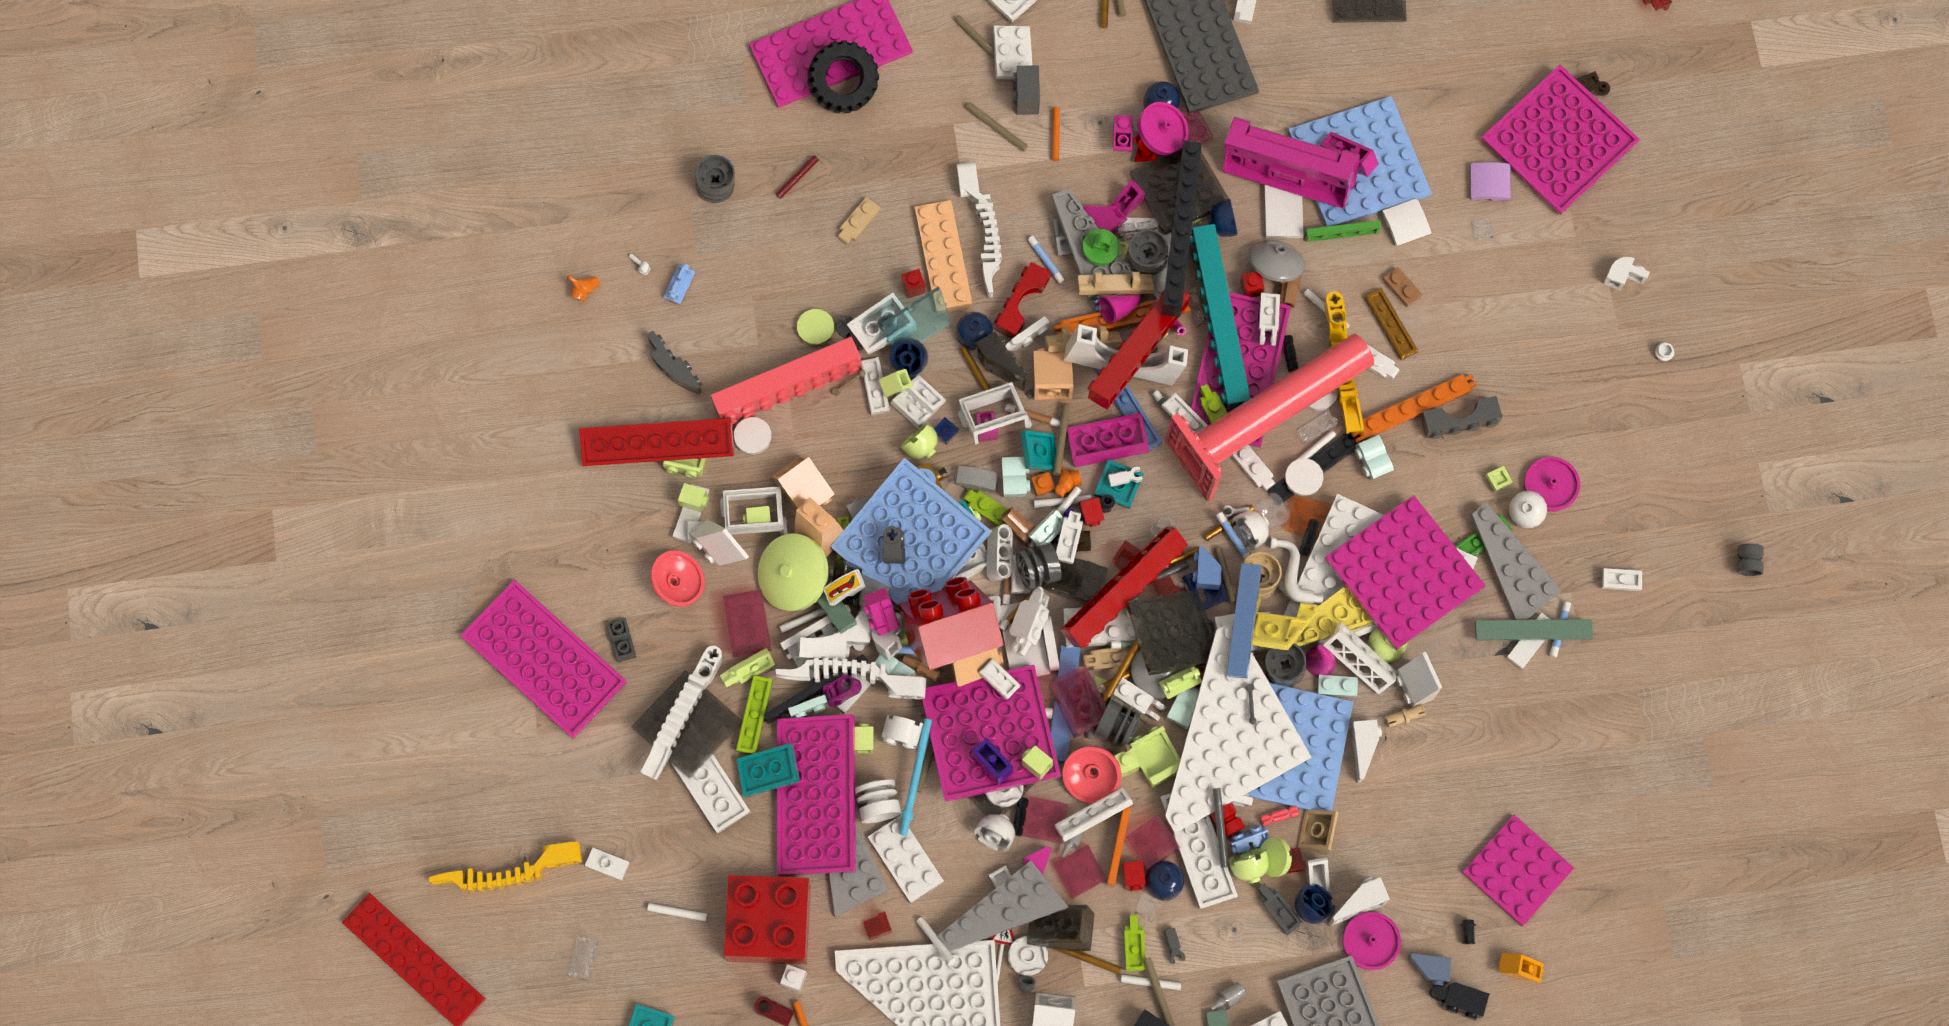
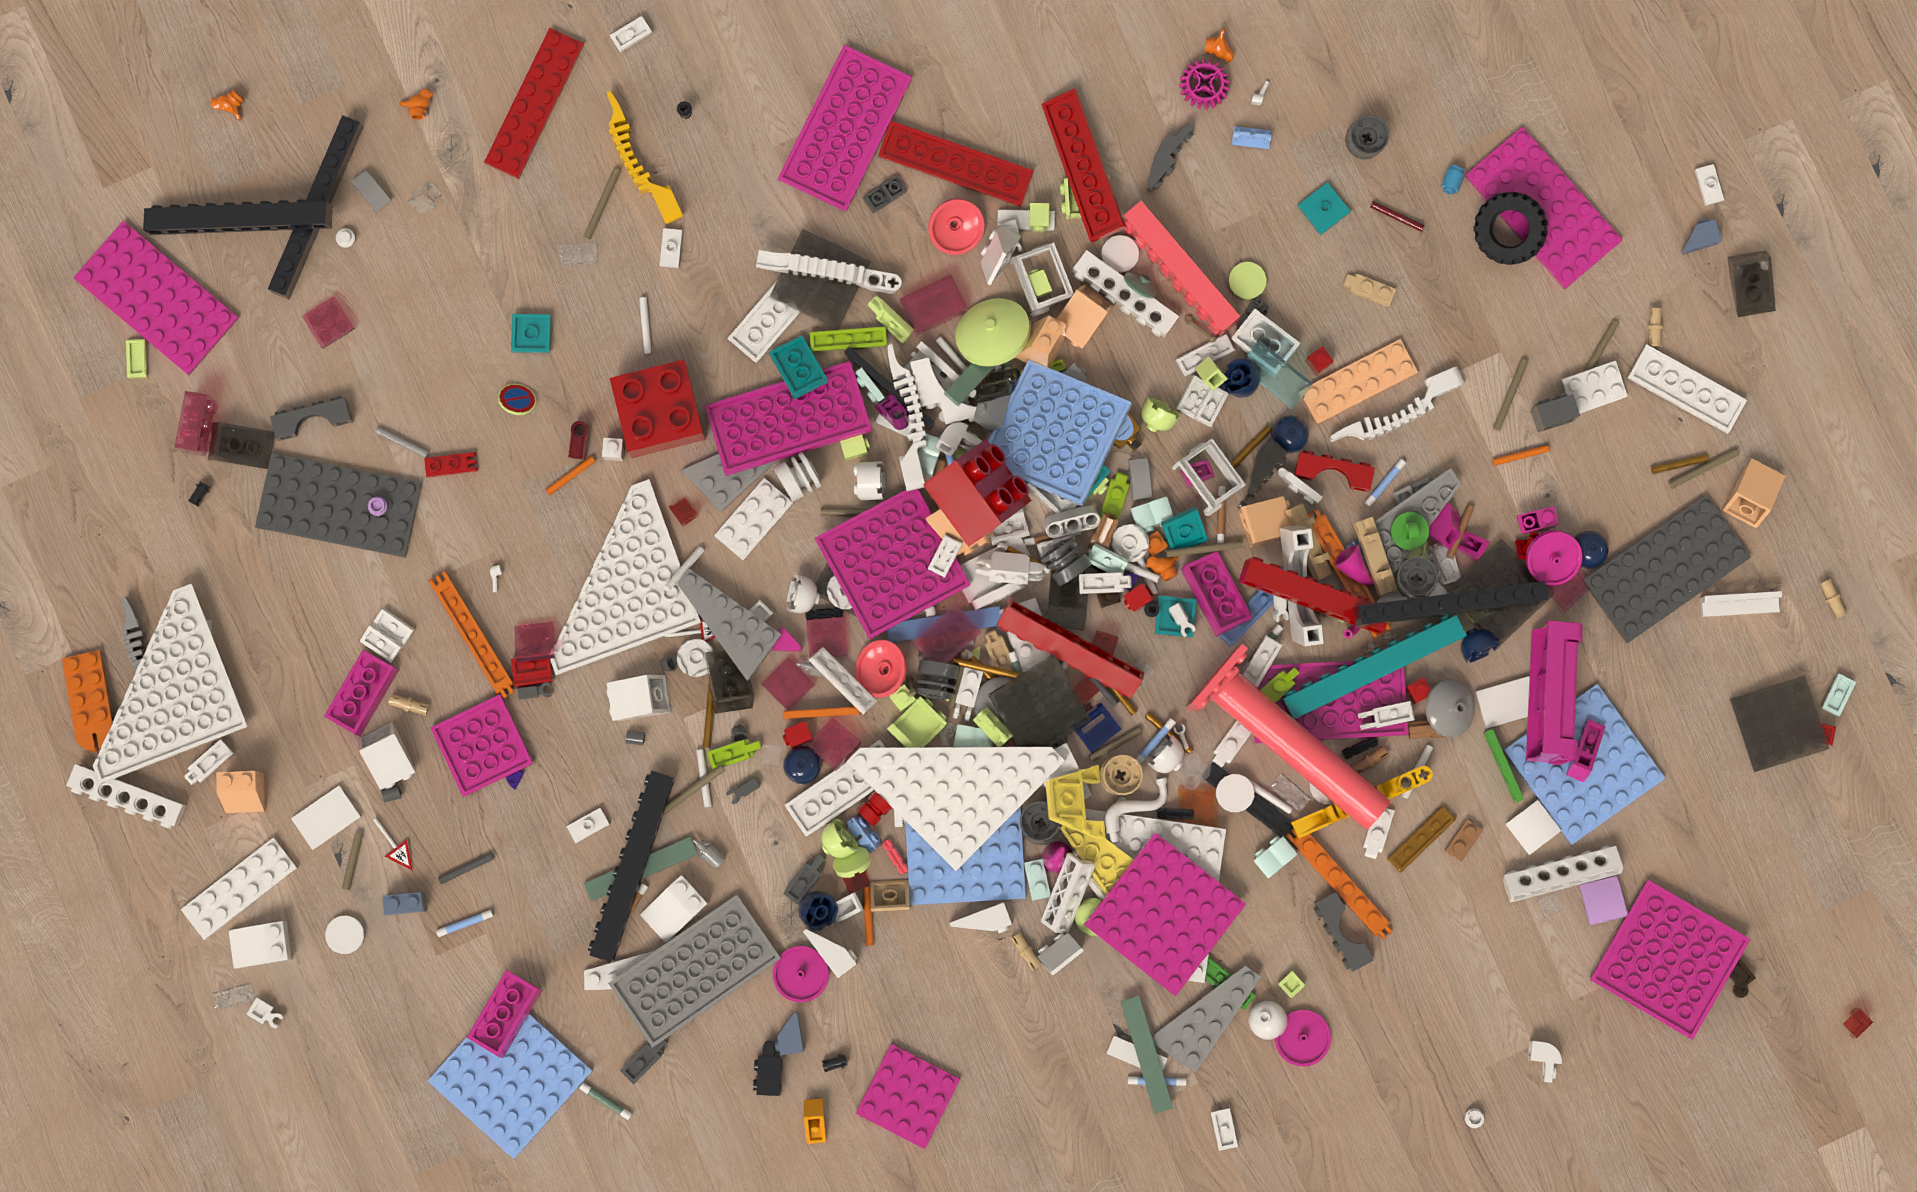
camera: 75 degrees right, 10 degrees up
(377, 842) = (631, 34): none -> white plate
(472, 804) = (682, 106): none -> black pin
(539, 920) = (601, 204): none -> dark tan bar
(613, 563) = (955, 163): none -> red plate
(621, 308) = (1199, 78): none -> dark pink gear
(769, 239) = (1324, 208): none -> teal plate
(779, 117) = (1453, 179): none -> dark azure brick
(789, 422) = (1141, 284): none -> sand green dish
(828, 408) = (1089, 262): none -> white brick
(844, 586) = (988, 383): slope -> none
(881, 612) = (973, 424): dark pink brick -> none
(893, 548) = (1039, 418): dark grey piece -> none
(907, 814) = (793, 508): medium azure bar -> none
(946, 430) = (1179, 435): clear blue plate -> none
(992, 761) = (860, 570): dark purple brick -> none
(1035, 503) = (1130, 542): none -> white tile
(1036, 762) = (873, 612): yellowish green brick -> none
(1104, 200) = (1463, 524): none -> medium nougat bar
(1115, 933) = (738, 733): none -> dark grey hinge
(1137, 385) = (1280, 608): none -> white bar
(1172, 732) = (946, 733): none -> clear arm
(1208, 570) = (1109, 724): medium blue slope -> none
(1220, 827) = (863, 802): dark grey bar -> none
(1244, 621) = (1066, 770): medium blue tile -> none
(1250, 687) = (1003, 793): dark grey hinge -> none
(1305, 347) = (1370, 760): none -> medium nougat pin
(1332, 859) = (868, 916): none -> orange bar
(1461, 253) = (1518, 891): none -> white brick

